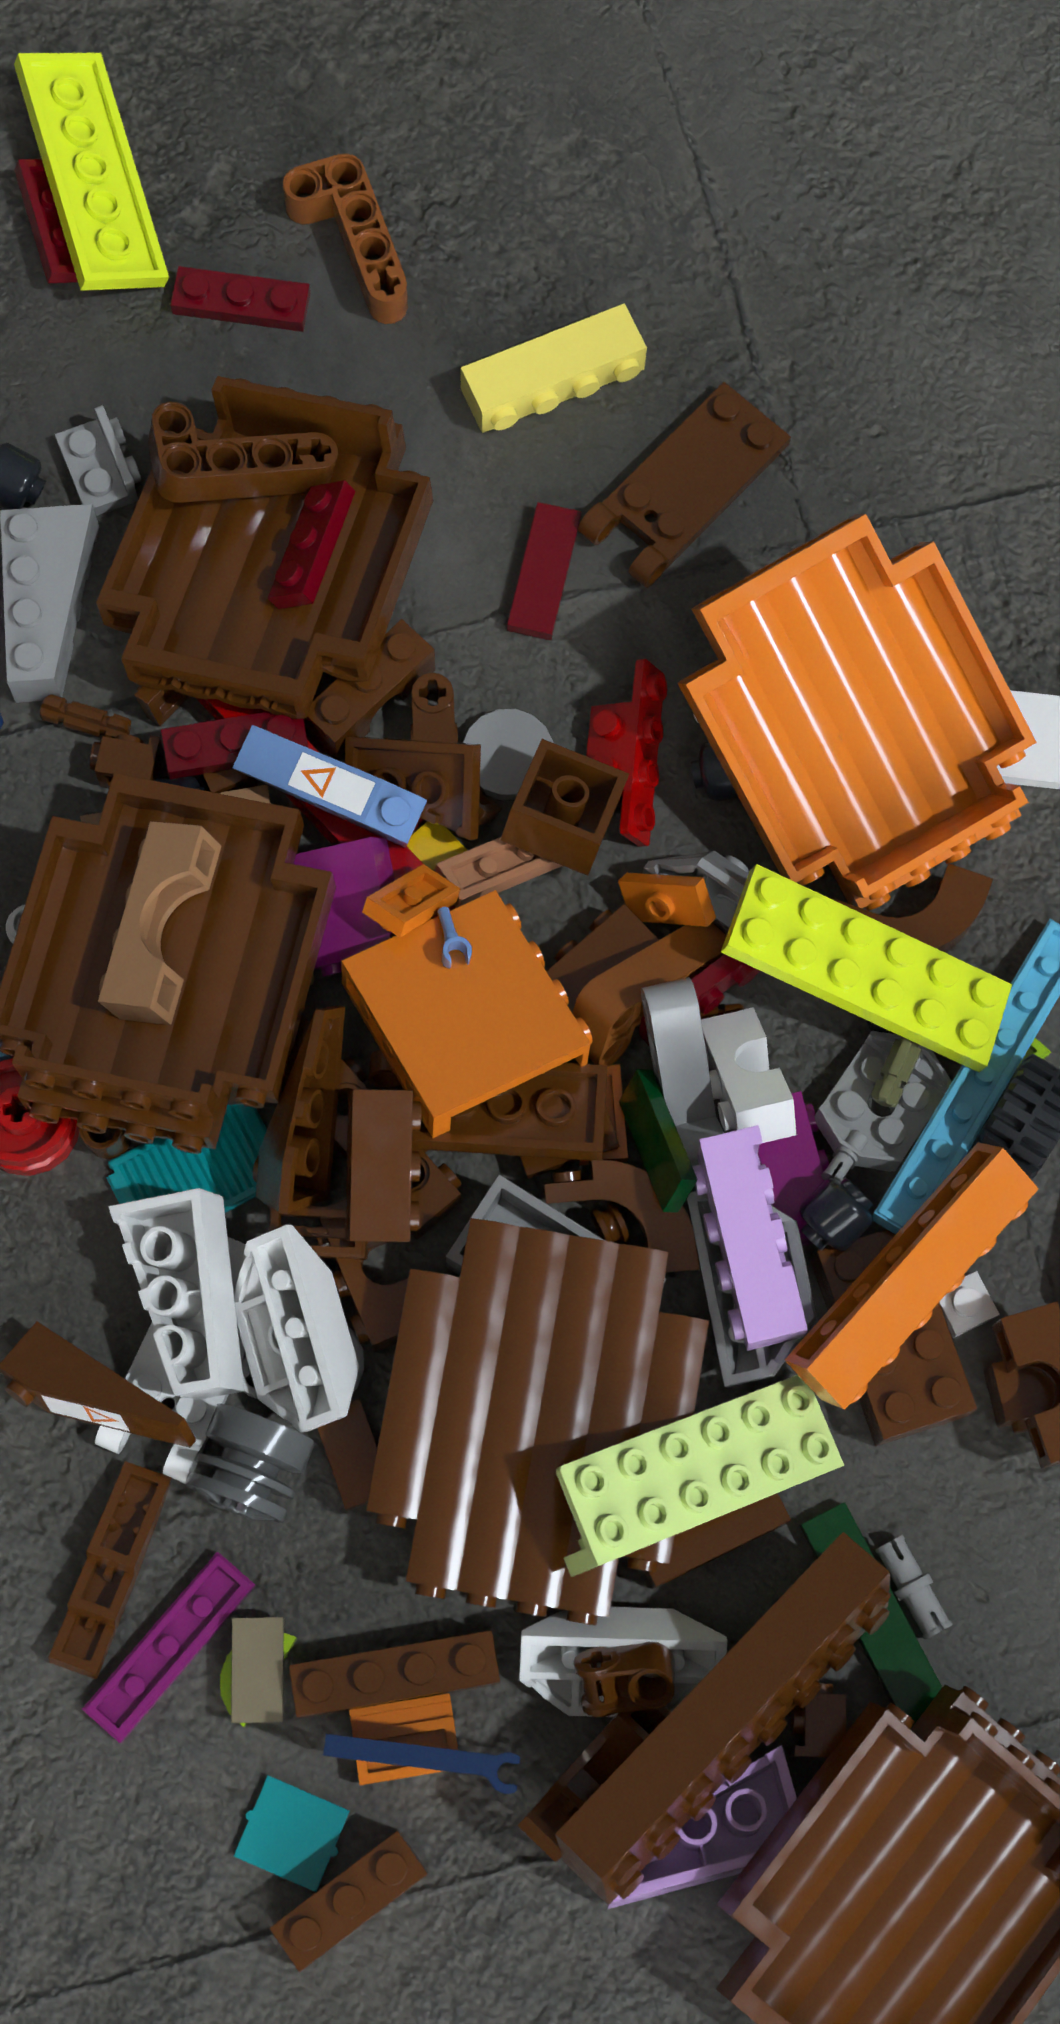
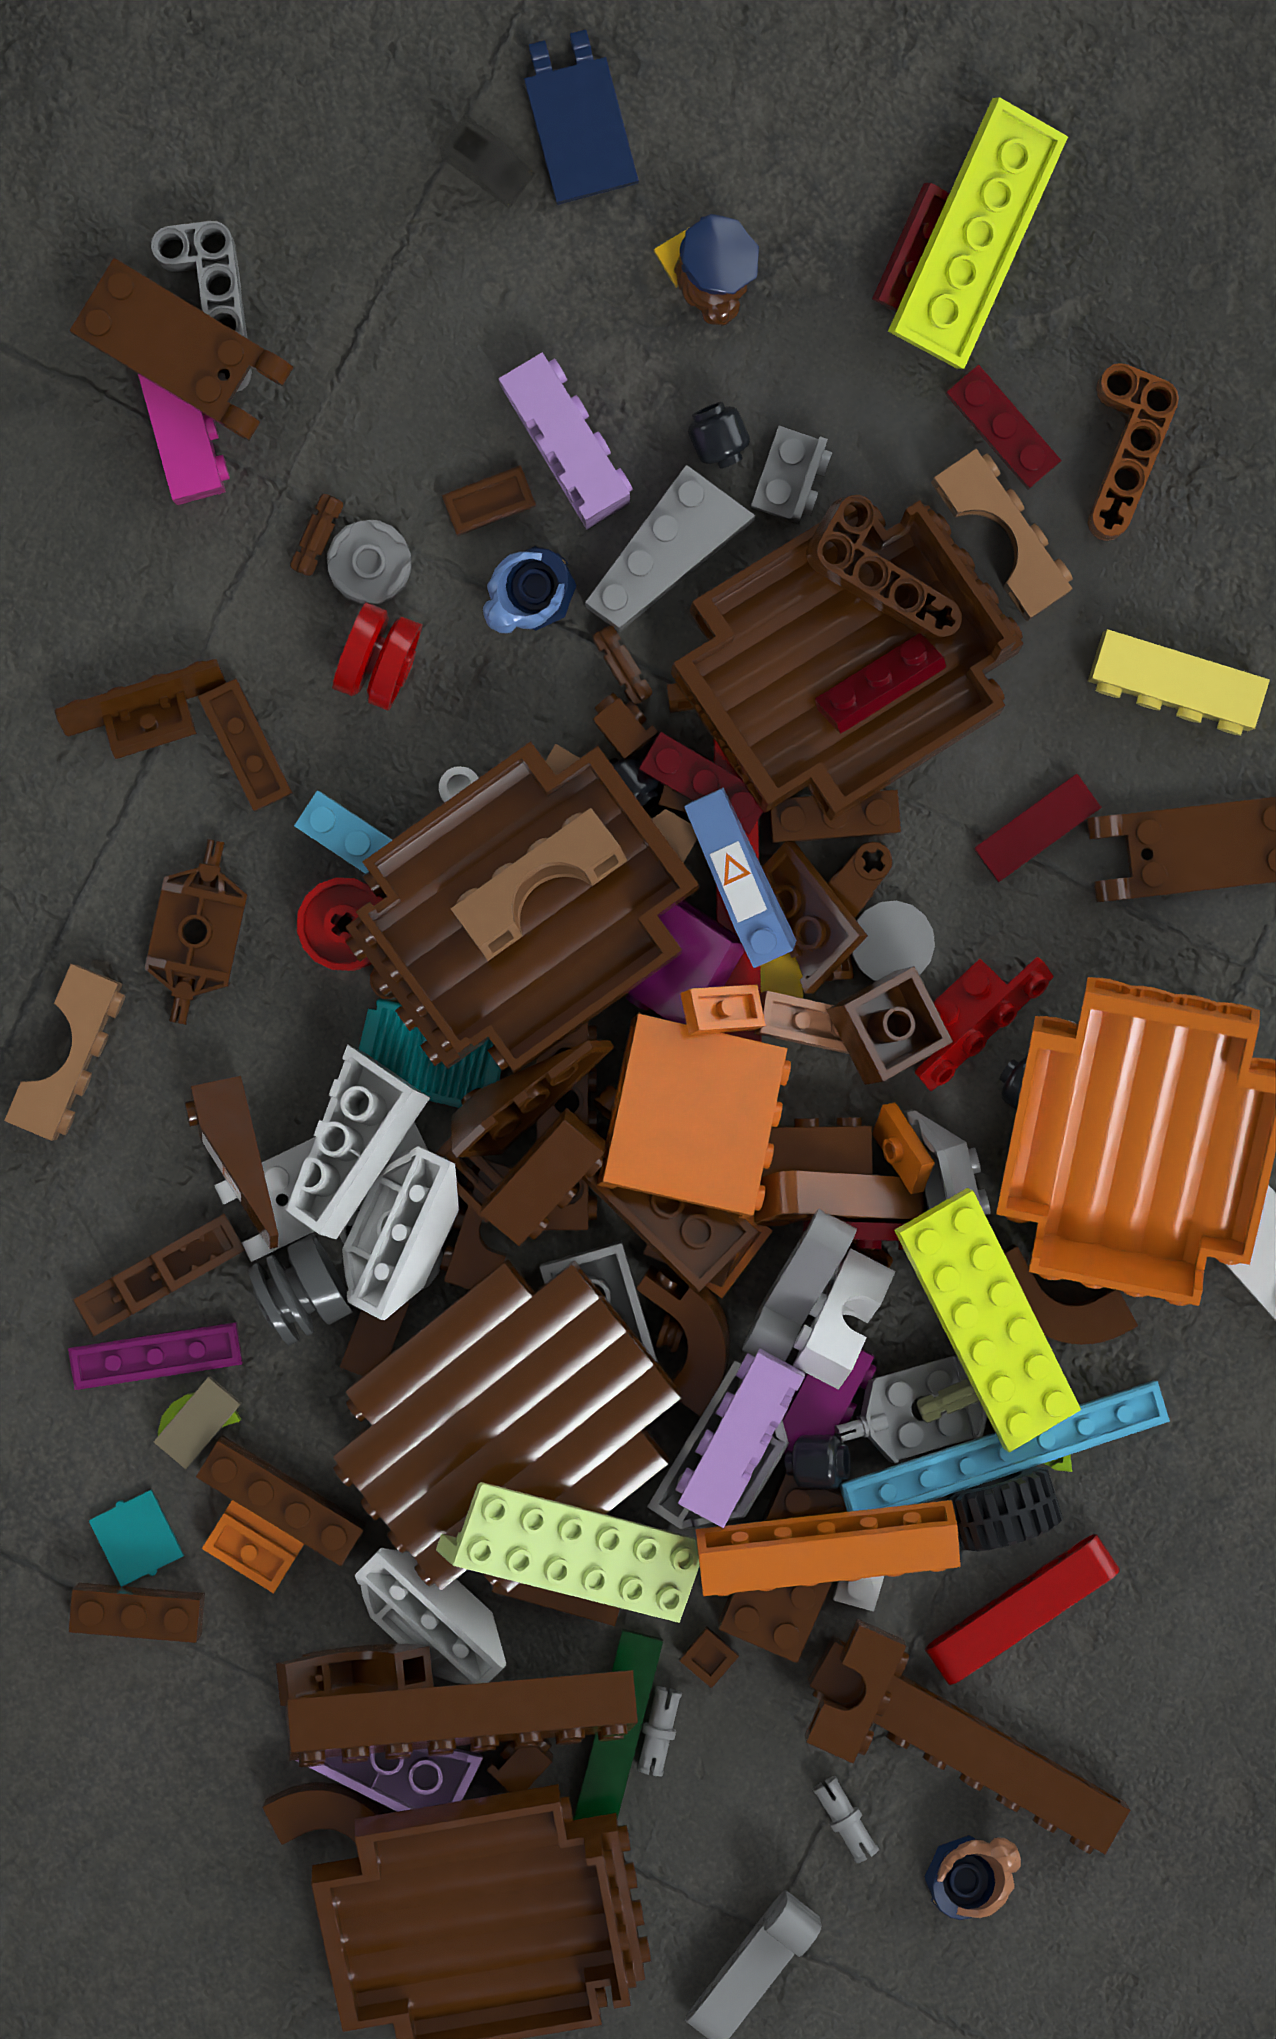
camera: 45 degrees right, 15 degrees up
(271, 355) = (973, 489): none -> medium nougat arch
(422, 1757) = (251, 1573): dark blue tile -> none
(452, 940) = (725, 1061): medium blue hand -> none
(623, 1678) = (422, 1638): reddish brown piece -> none
(657, 1141) = (744, 1312): dark green tile -> none
(672, 1937) = (317, 1807): none -> reddish brown arch
(896, 1480) = (709, 1657): none -> reddish brown plate

